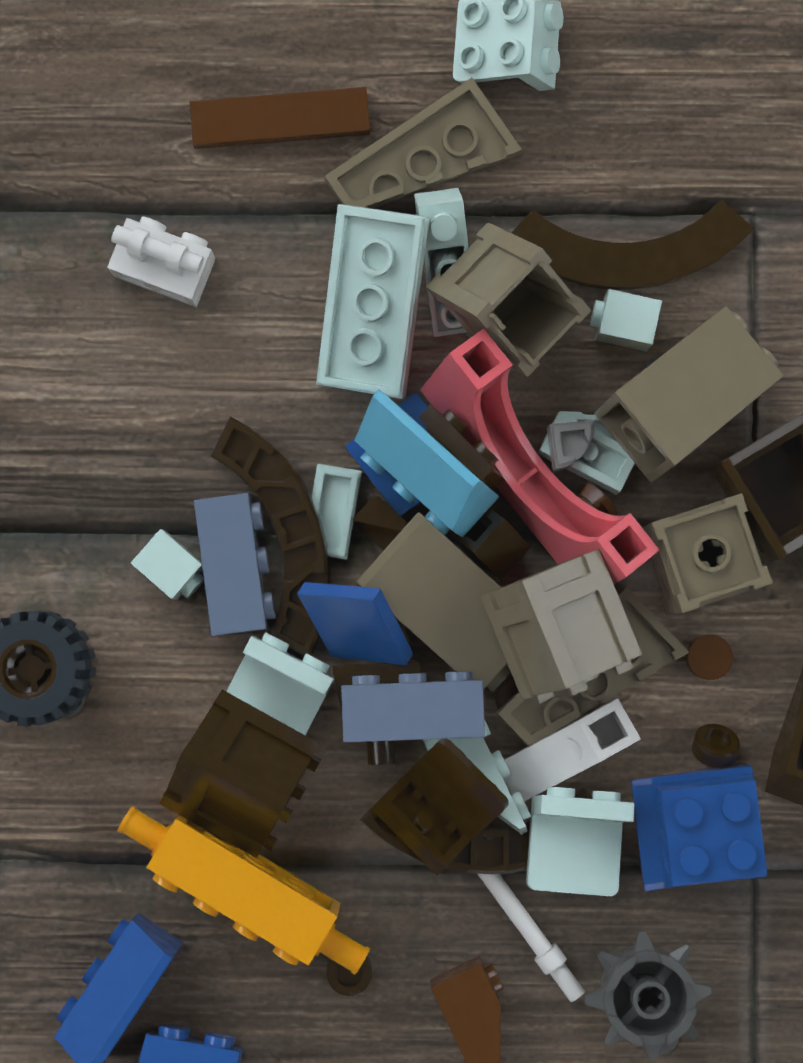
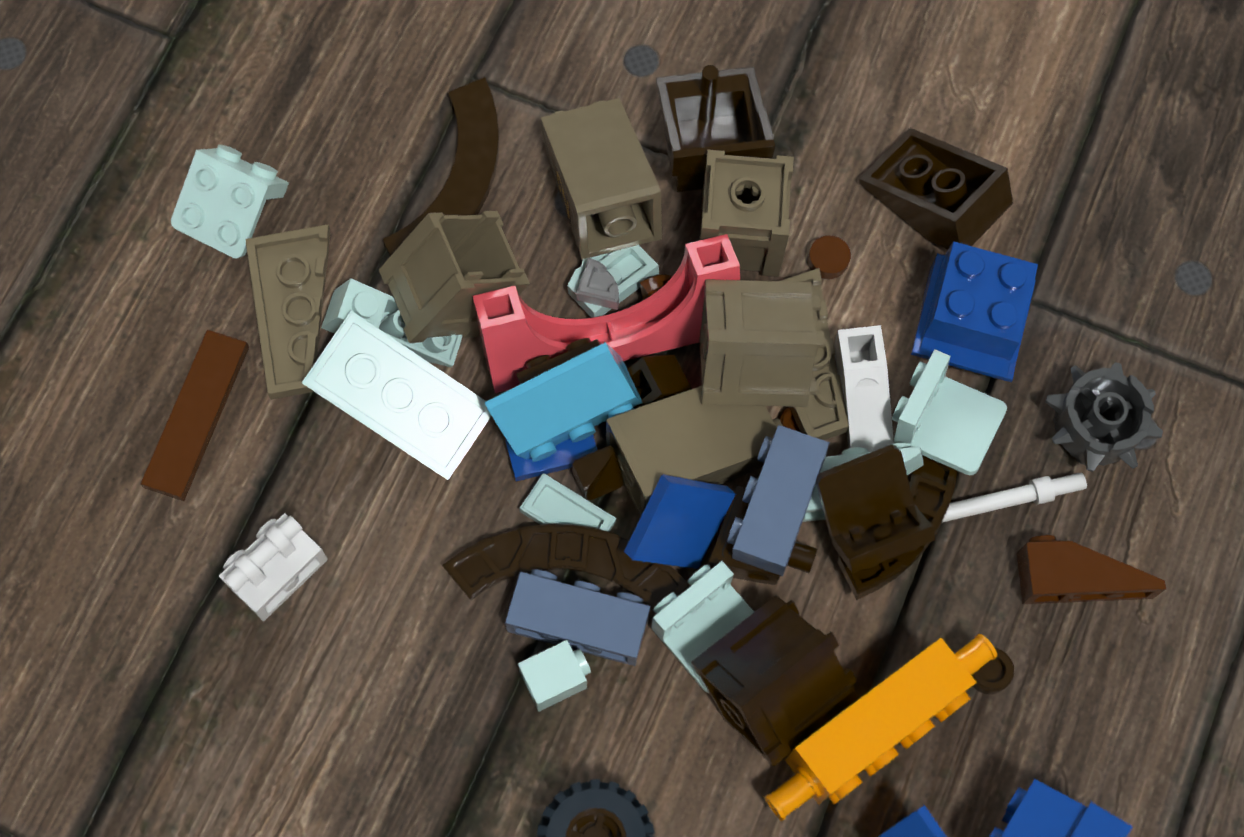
camera: 70 degrees left, 15 degrees down
(626, 319) = (517, 200): light aqua brick -> none
(715, 746) = (907, 279): dark brown tile -> none

